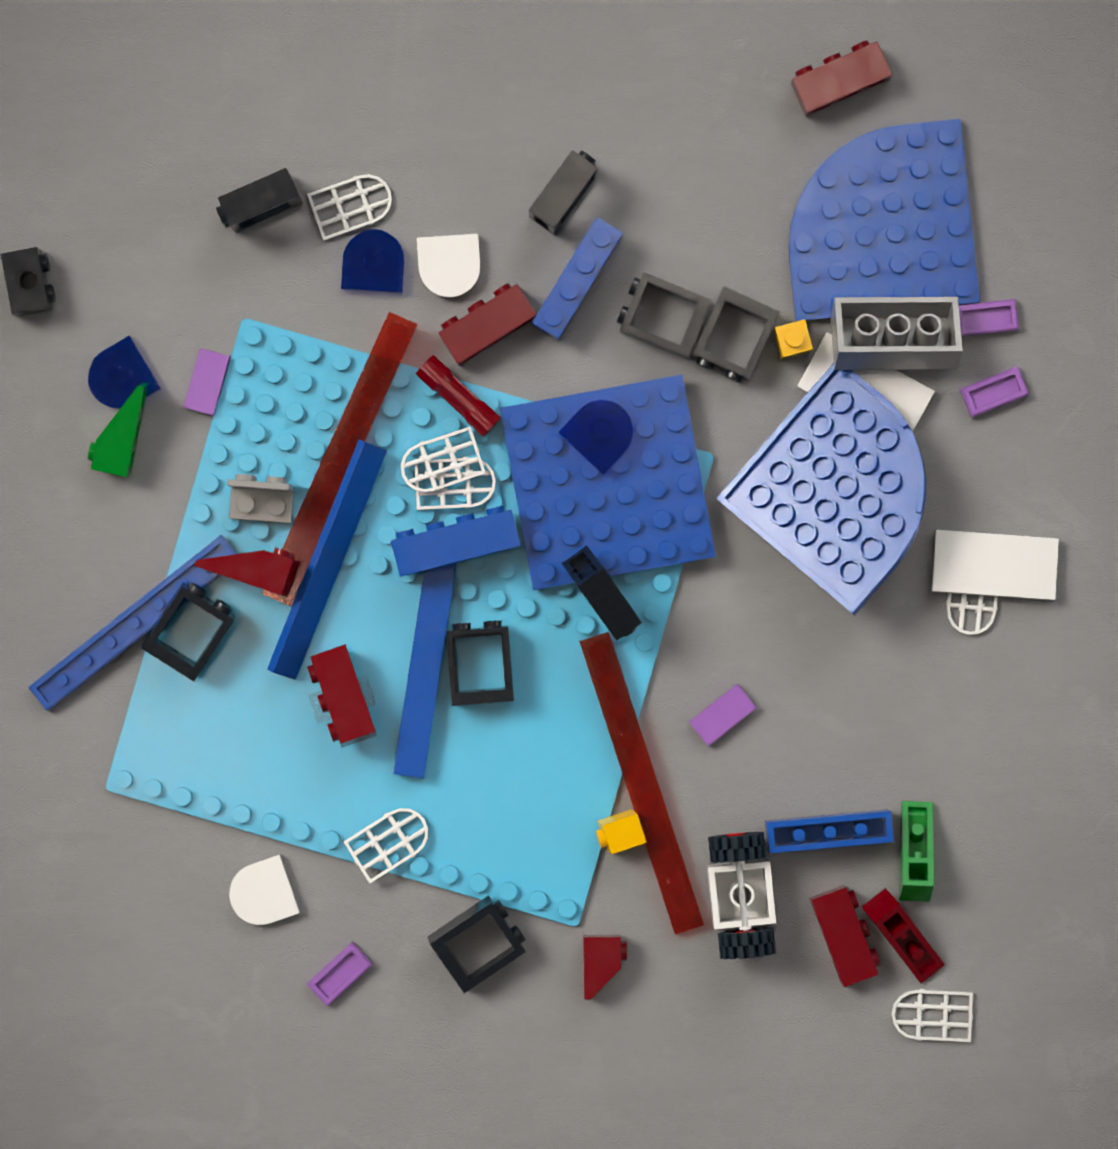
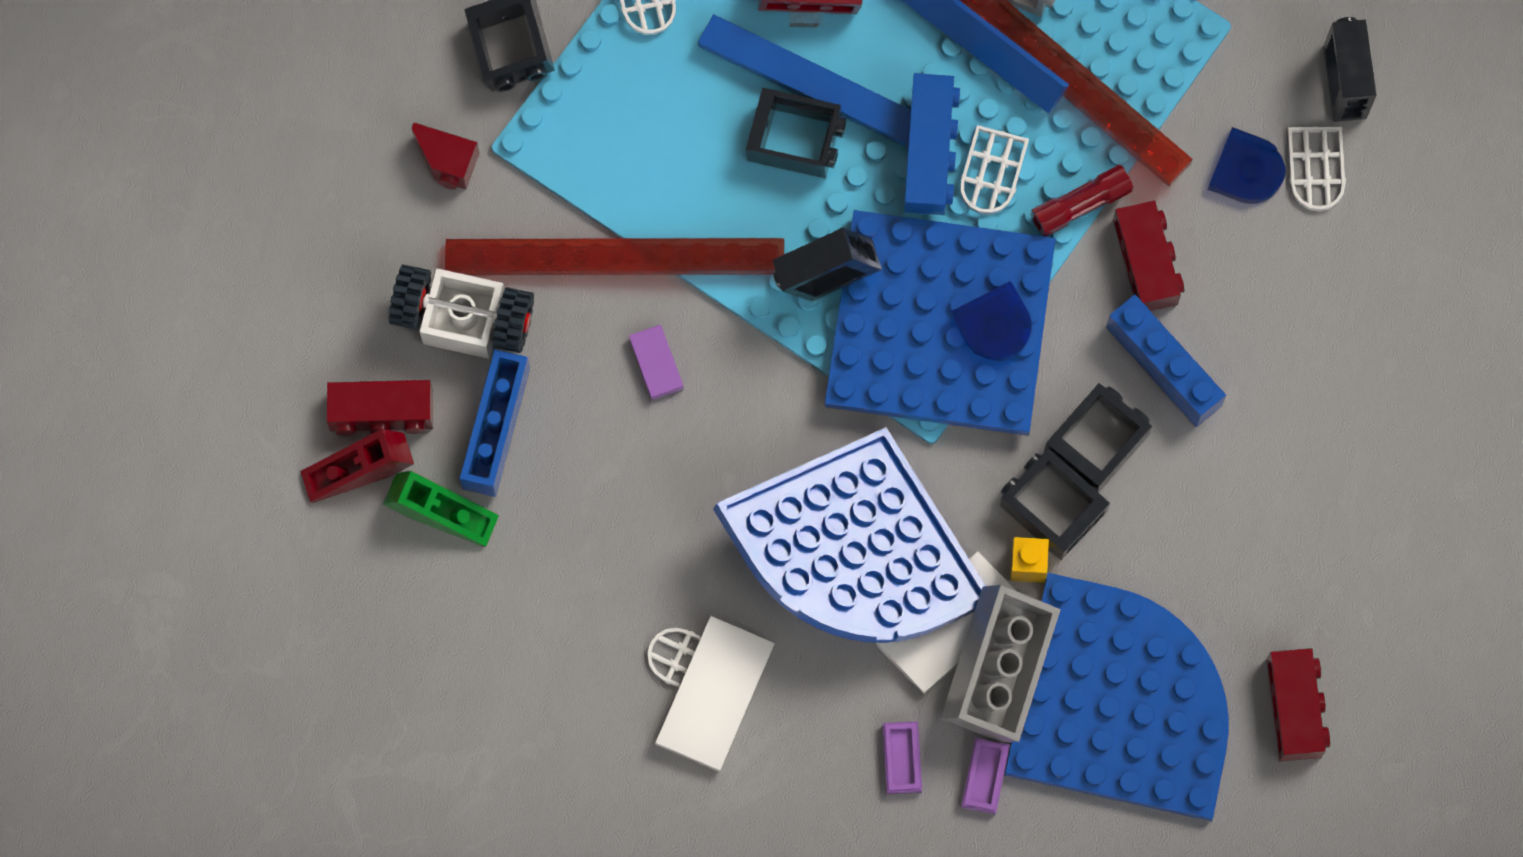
camera: 110 degrees right, 15 degrees down
(449, 263) = (1223, 242): white tile -> none
(453, 466) = (1009, 173): white window -> none
(563, 191) = (1263, 372): black window -> none
(620, 832) = (571, 215): yellow brick -> none
(943, 1023) = (267, 488): white window -> none

